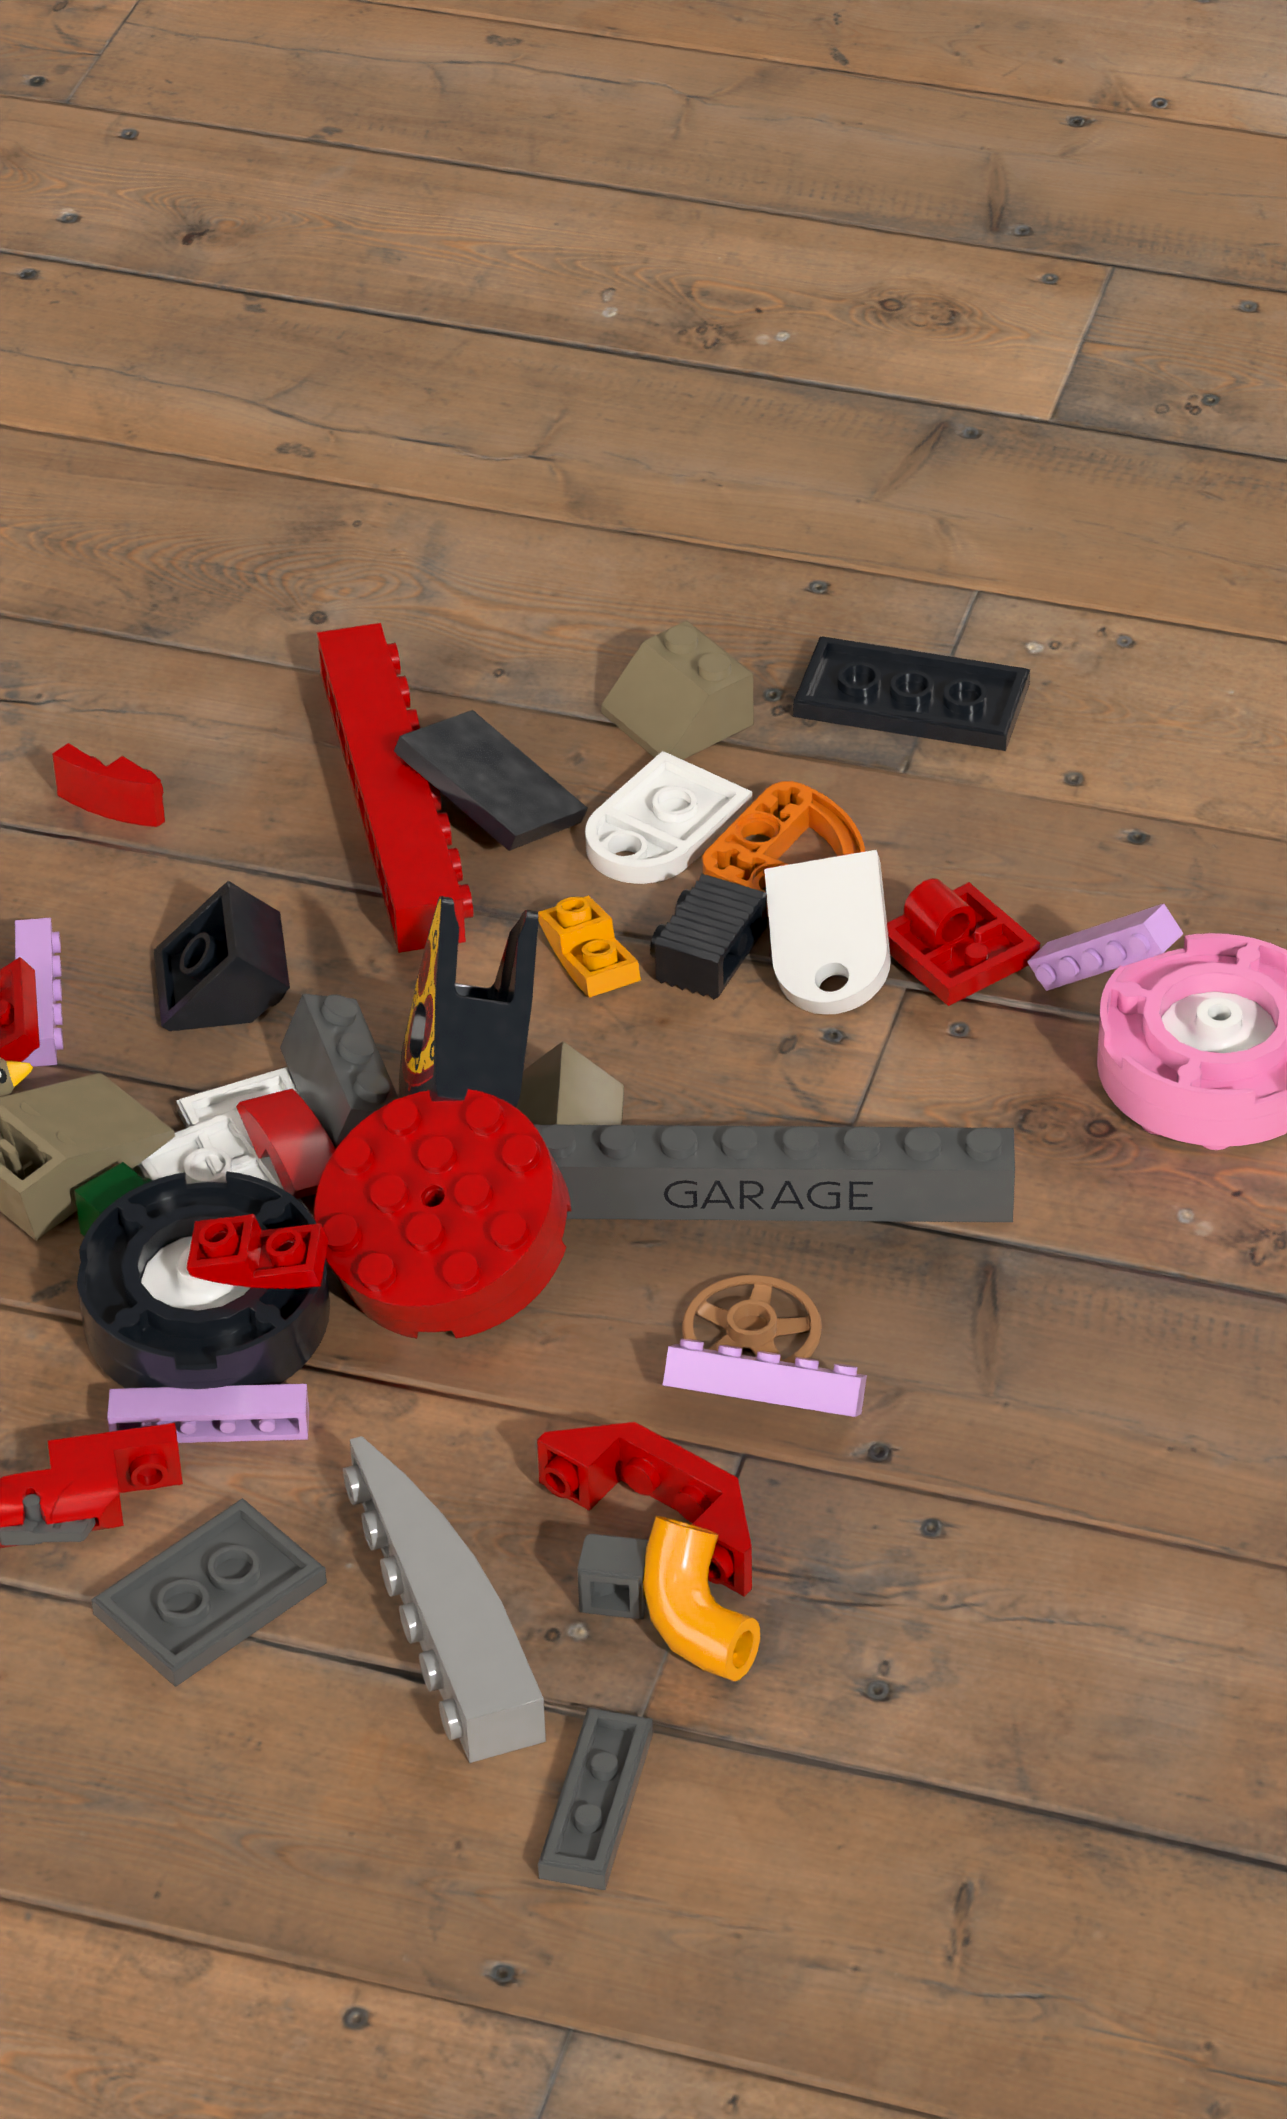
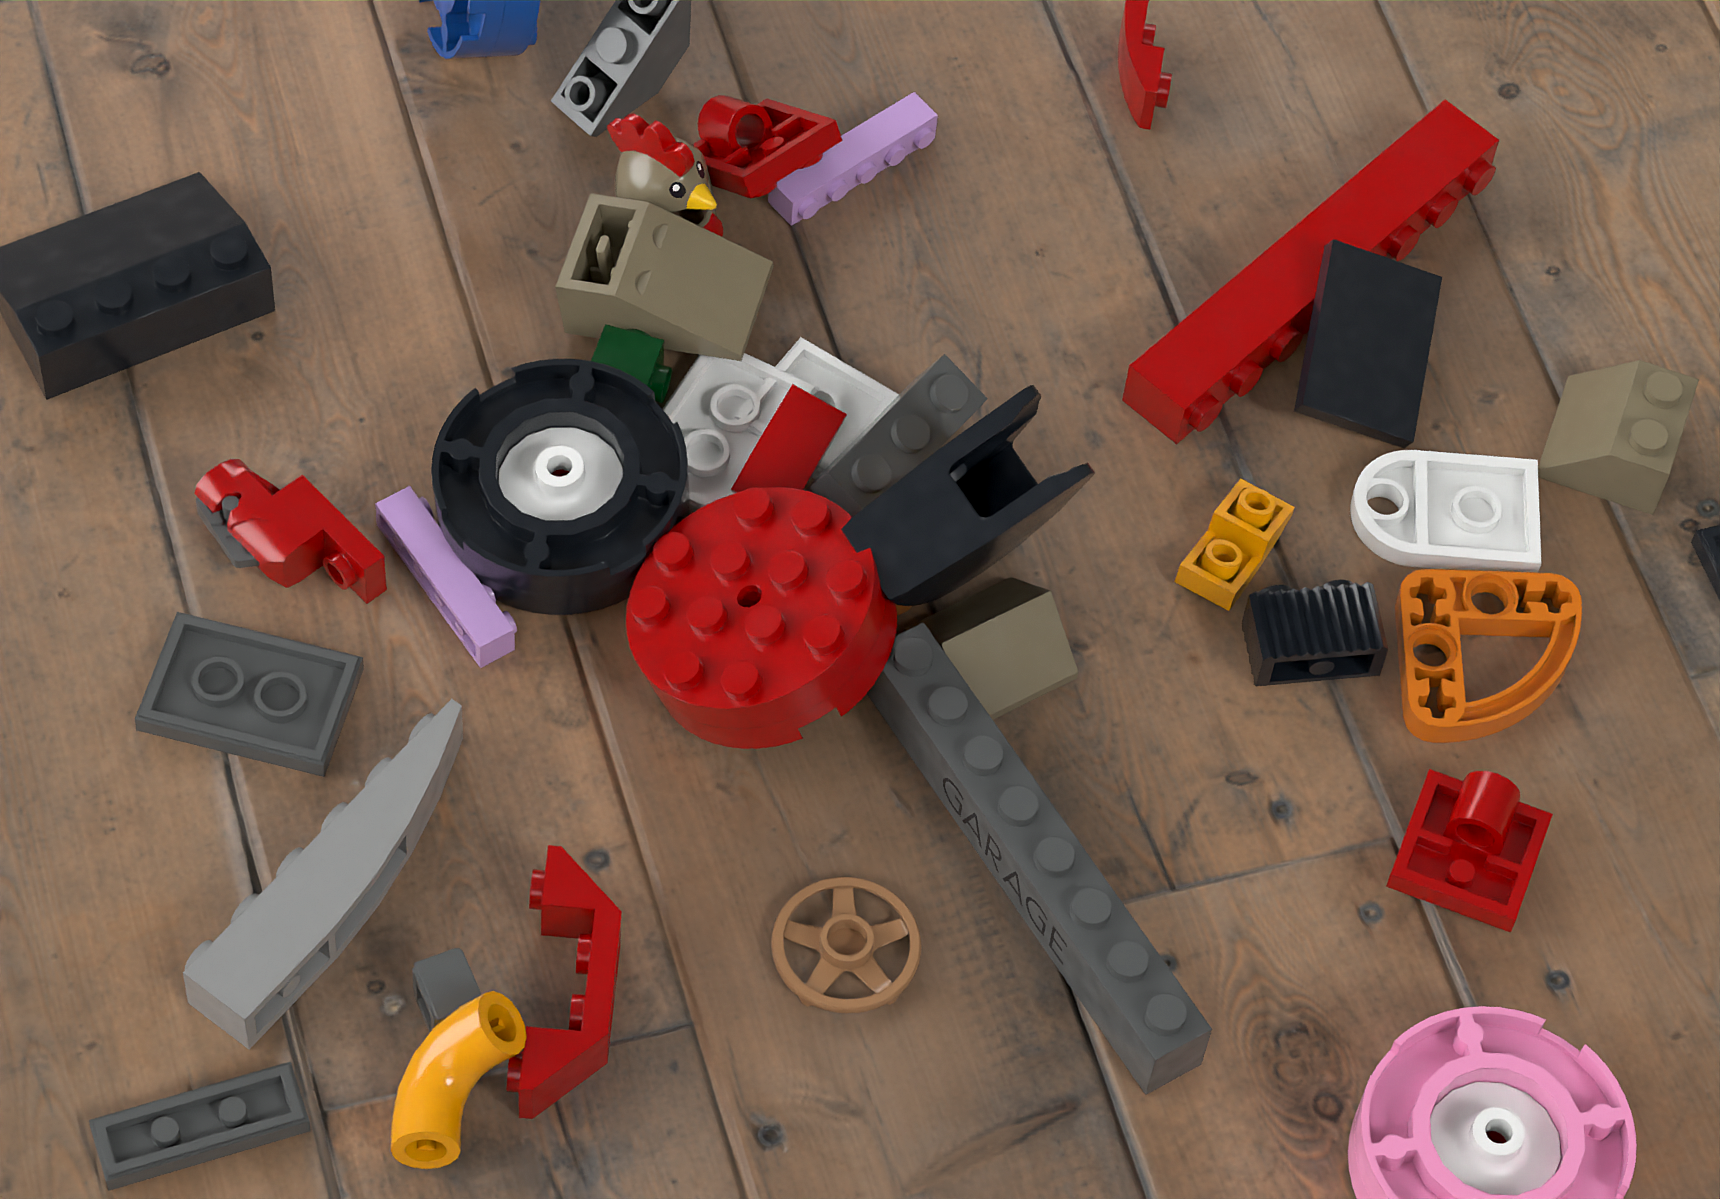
camera: 50 degrees right, 15 degrees up
(222, 963) = (984, 276): black slope -> none
(244, 1255) = (586, 502): red slope -> none
(765, 1378) = (773, 992): lavender piece -> none
(828, 923) = (1392, 728): white tile -> none
(1105, 947) = (1517, 981): lavender piece -> none

